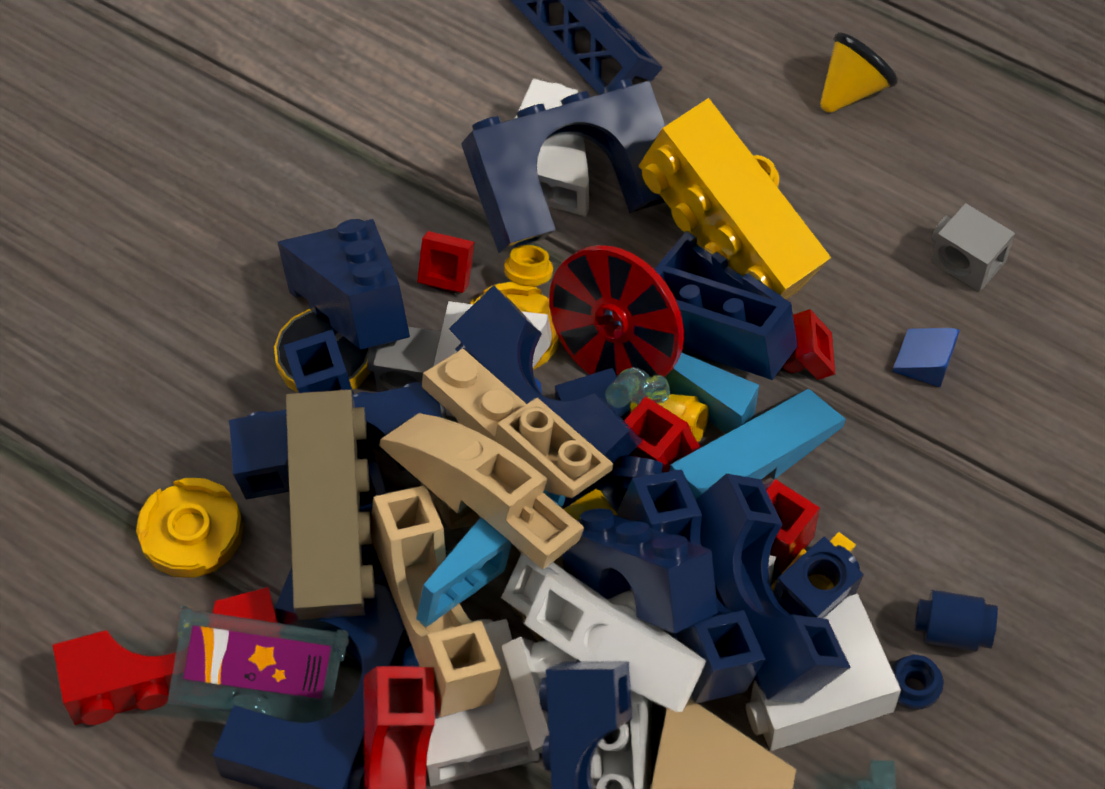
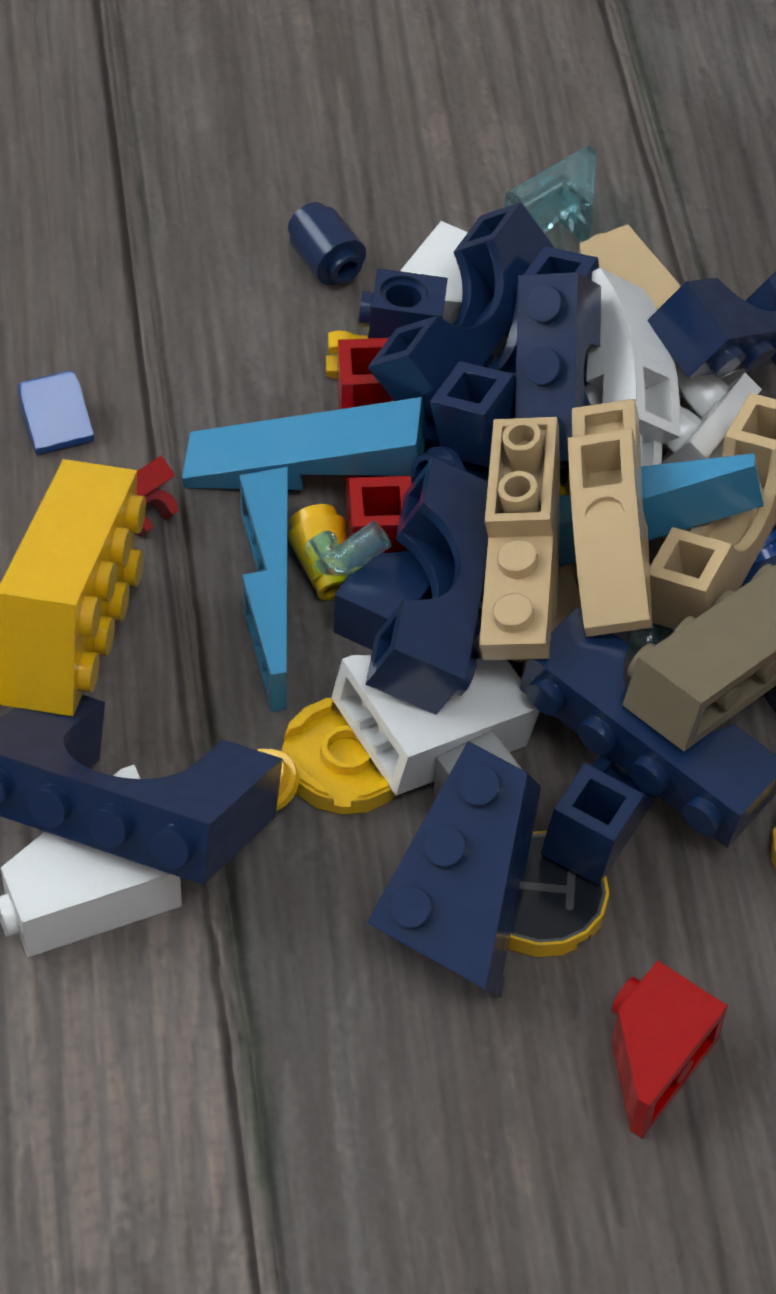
camera: 135 degrees left, 5 degrees down
(176, 322) = (660, 1040): none -> red slope
(445, 261) = (334, 851): red tile -> none
(616, 281) = (287, 605): red piece -> none
(726, 313) = (184, 564): dark blue wedge -> none
(925, 671) = (399, 243): dark blue plate -> none

